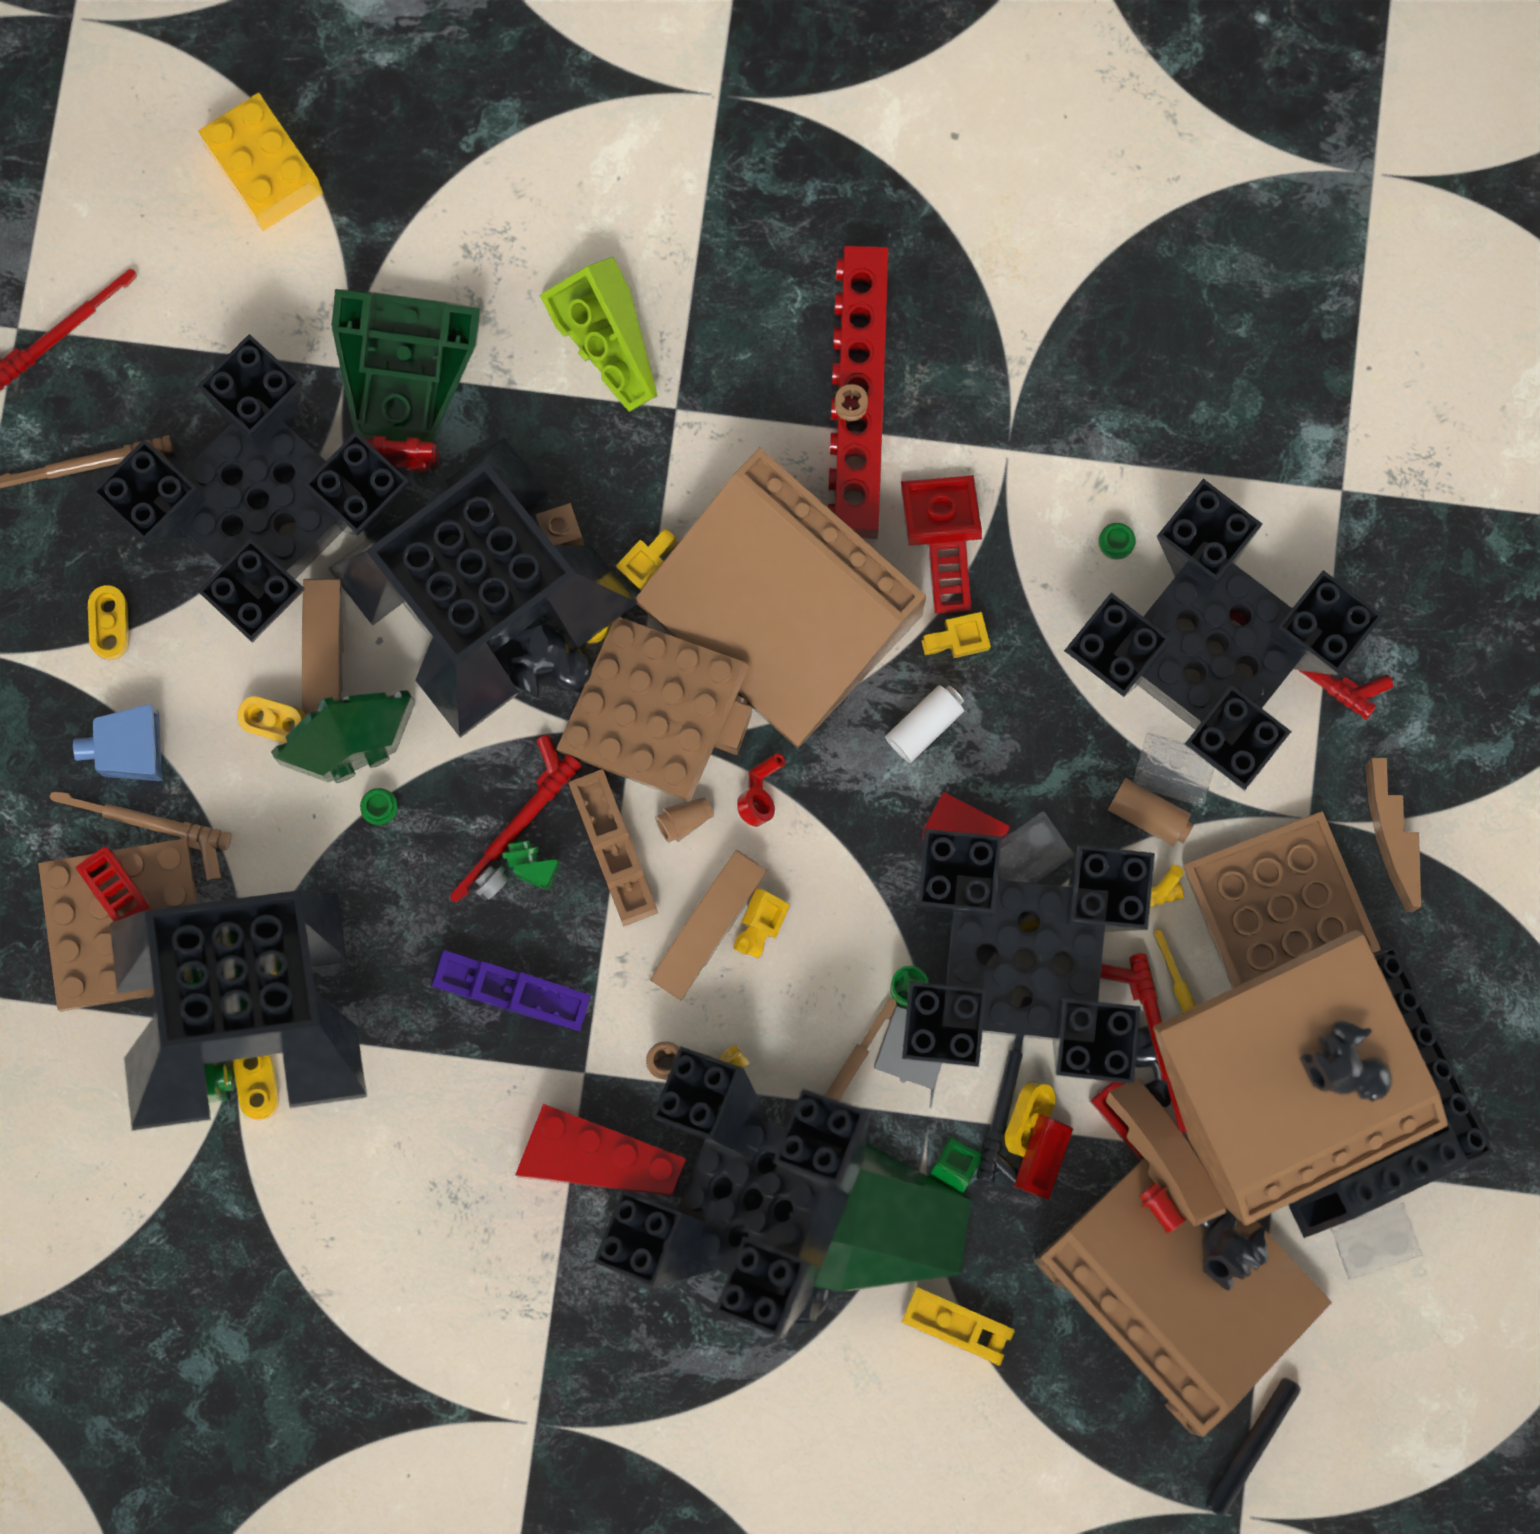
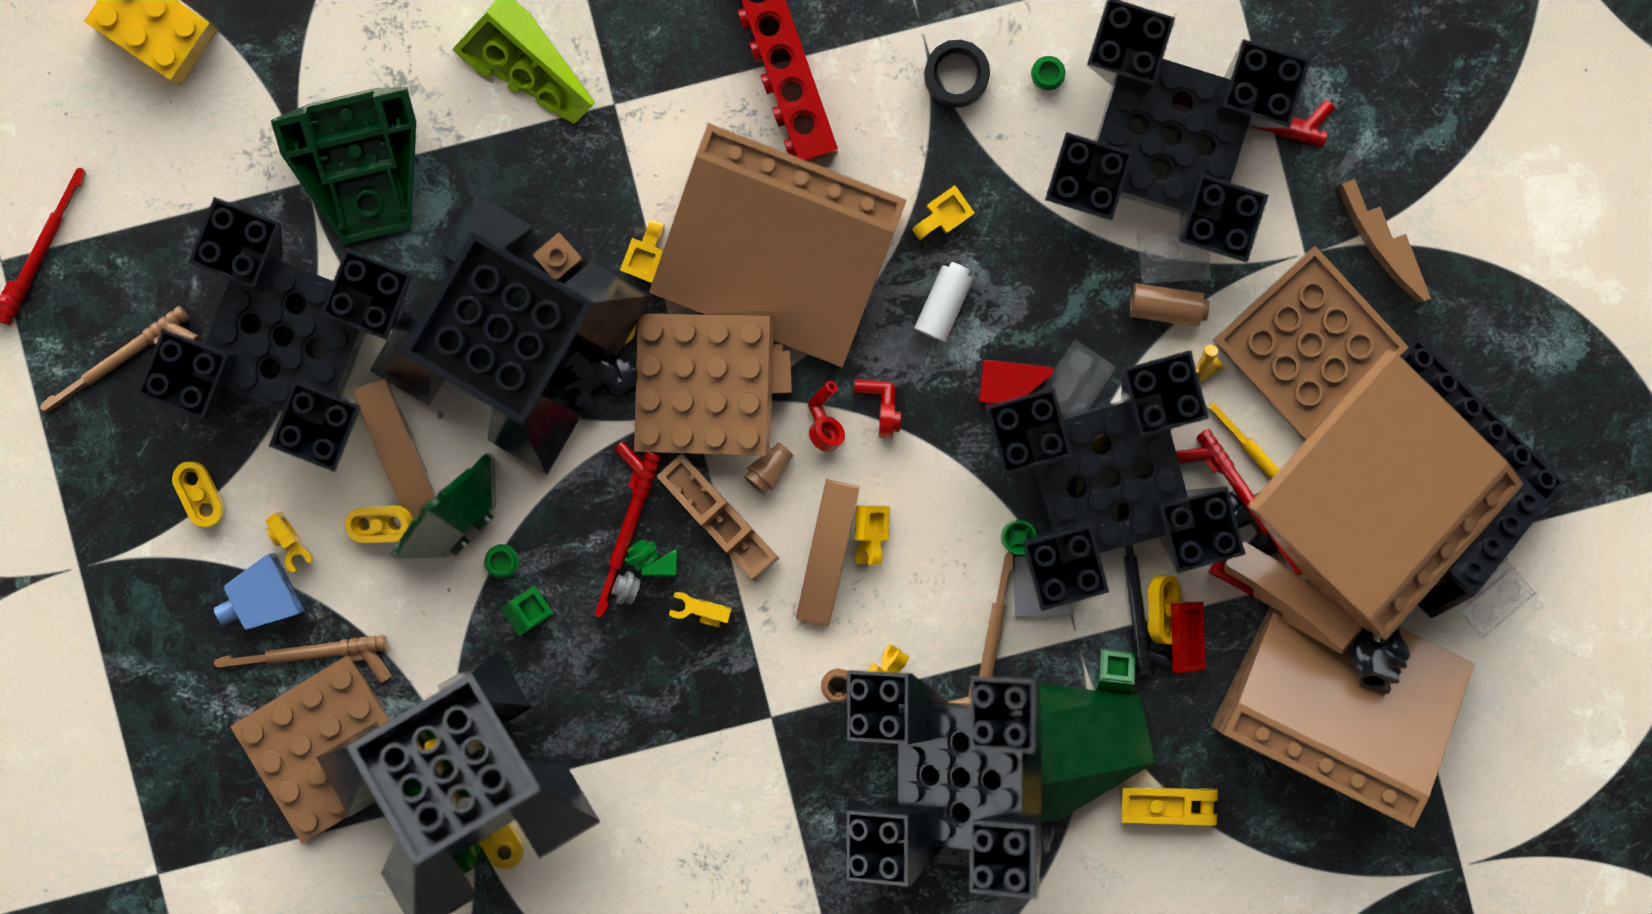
camera: 20 degrees left, 10 degrees up
(96, 861) = (287, 728): red slope -> none
(175, 694) = (283, 534): none -> yellow plate
(382, 866) = (526, 610): none -> green slope
(411, 453) = (401, 239): red plate -> none
(510, 990) = (680, 674): dark purple slope -> none
(565, 938) = (710, 612): none -> yellow plate
(593, 1156) = (807, 787): red wedge -> none
(824, 814) = (889, 418): none -> red plate
(853, 390) = (758, 45): medium nougat bush -> none
(936, 576) = (900, 133): red slope -> none
(941, 510) = (884, 107): red tile -> none
(1025, 478) = (954, 47): none -> black tyre
(1162, 1207) = (1306, 646): red pin -> none
(1253, 1447) = (1451, 806): black axle -> none
(1342, 1069) = (1420, 478): black animal -> none

